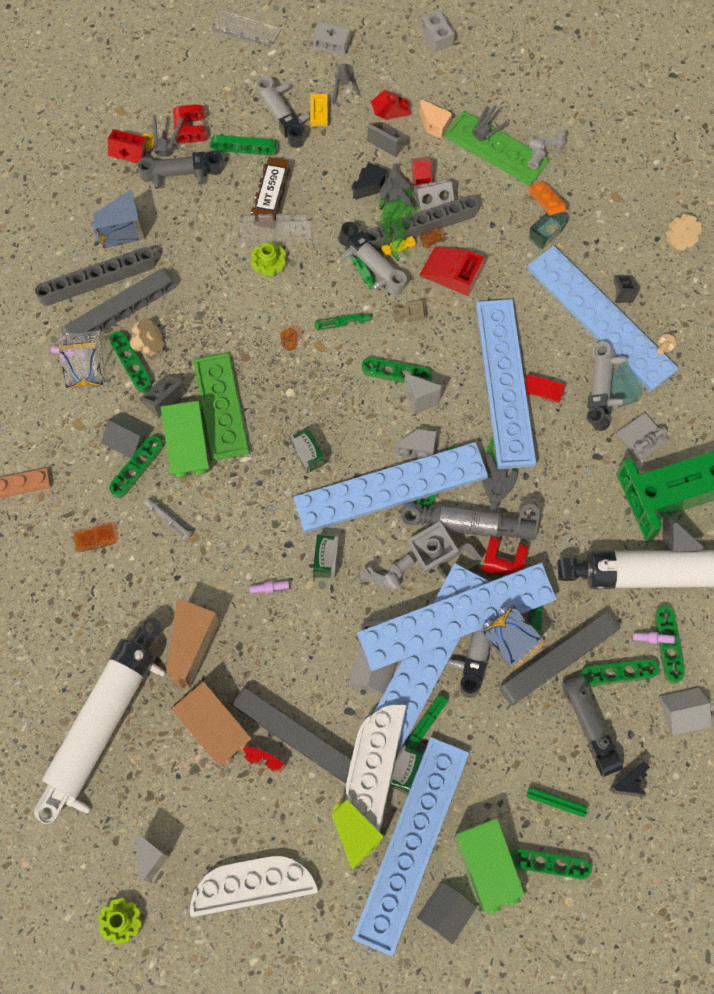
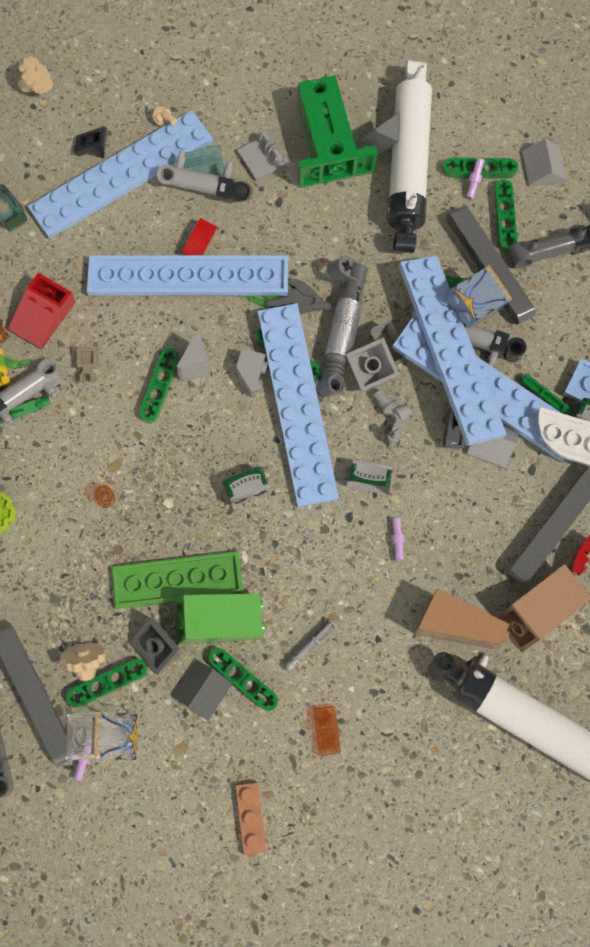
camera: 90 degrees left, 5 degrees up
(341, 321) = (88, 438): green piece -> none
(501, 565) = (393, 304): red connector -> none

